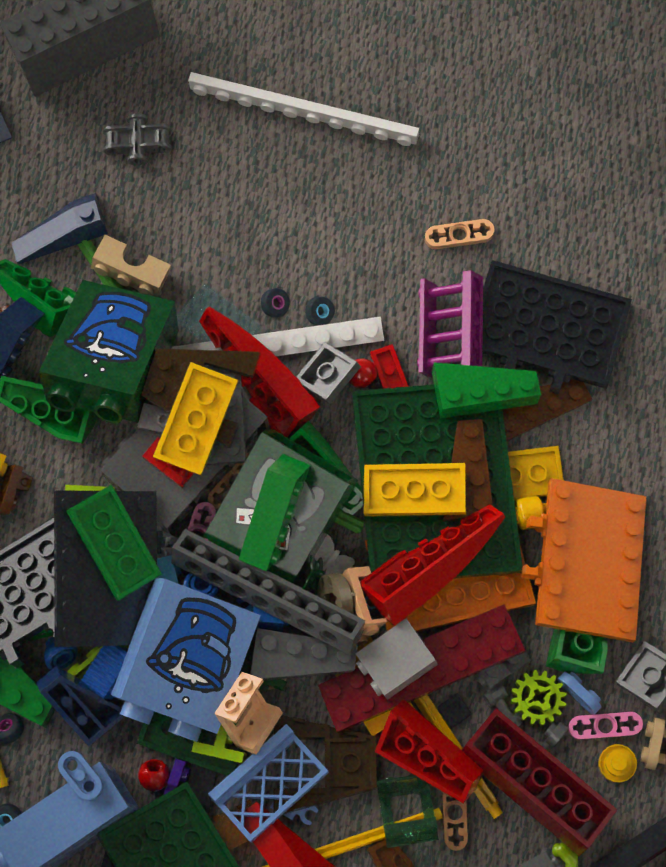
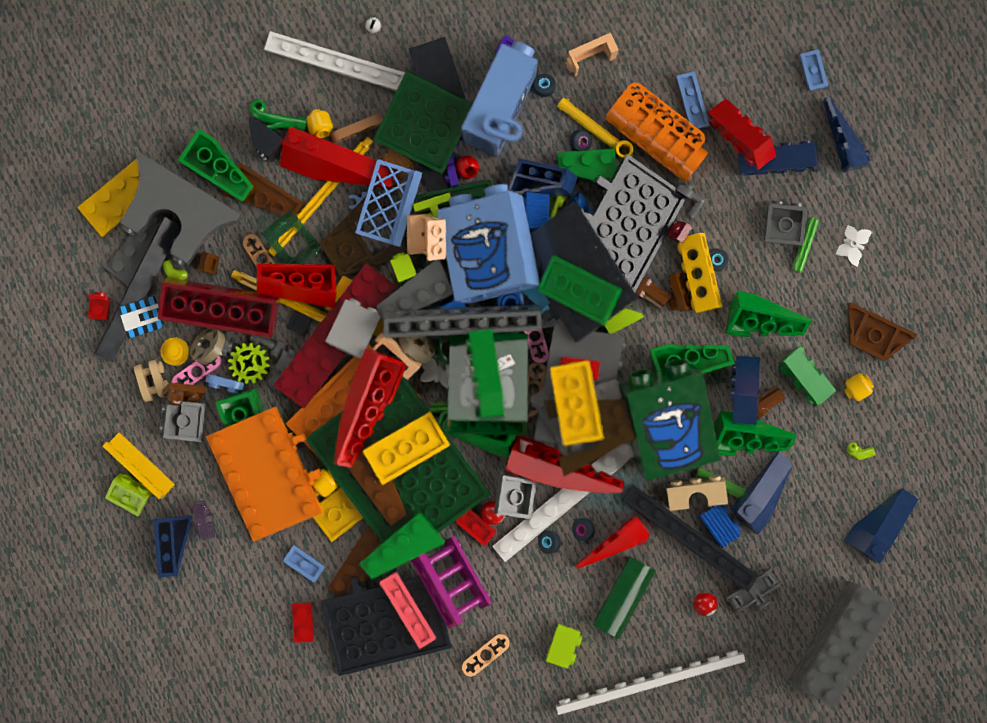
camera: 145 degrees right, 10 degrees up
(38, 504) = (652, 293): none -> reddish brown piece
(128, 221) = (720, 525): none -> blue brick
(167, 226) = (690, 538): none -> black tile
(195, 152) = (705, 604): none -> red piece
(236, 267) = (623, 538): none -> red wedge
(277, 209) = (624, 597): none -> dark green brick
(297, 696) = (403, 268): none -> lime brick
(370, 195) = (563, 646): none -> lime brick
(515, 321) = (407, 609): none -> coral plate
(520, 844) = (208, 263): none -> reddish brown tile
(589, 737) = (217, 343): none -> dark tan piece
(602, 439) = (304, 563): none -> medium blue plate
(635, 828) = (140, 317): none -> sticker
(639, 379) = (303, 622): none -> red plate
(642, 709) = (177, 392): none -> reddish brown hinge

